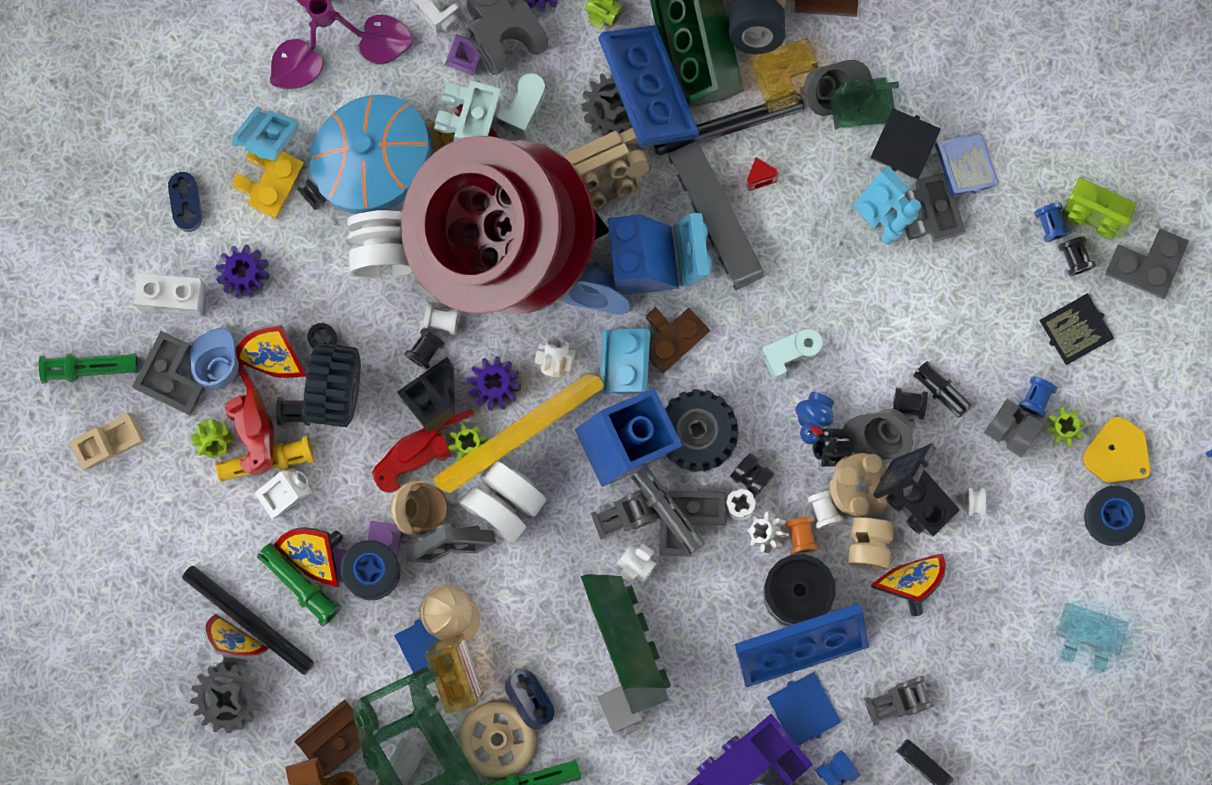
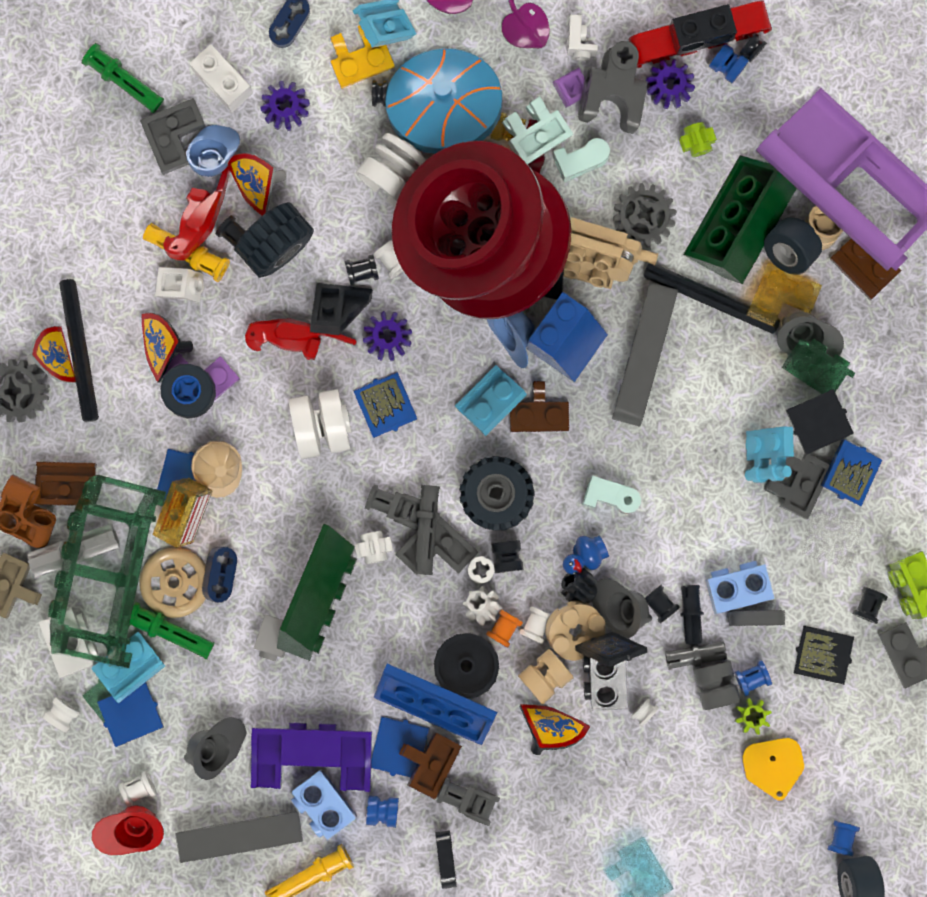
camera: 35 degrees right, 5 degrees up
(107, 441) = (91, 143): tan slope -> none
(212, 438) = (162, 204): lime gear -> none
(308, 594) = (134, 367): green pin -> none
(321, 326) = (308, 200): black bush -> none
(418, 508) = (258, 377): tan piece -> none
(449, 539) = (259, 417): dark grey plate -> none
(464, 435) = (336, 355): lime gear -> none
(518, 433) = (372, 386): yellow tile -> none
(547, 448) = (385, 405): none -> piece
(554, 357) = (445, 354): white gear -> none
(627, 437) = (444, 456): blue slope -> none
(648, 85) = (678, 222): blue tile -> none
(691, 249) = (609, 358): medium azure plate -> none
(761, 175) = (701, 354): red slope -> none
(842, 697) = (432, 764): none -> reddish brown plate
(966, 338) = (740, 595): none -> light blue brick
(975, 419) = (696, 655): none -> dark grey pin
(996, 346) = (757, 618): none -> dark grey beam
(1045, 213) = (875, 557): blue bush -> none
(1121, 506) = (737, 815): black wheel -> none

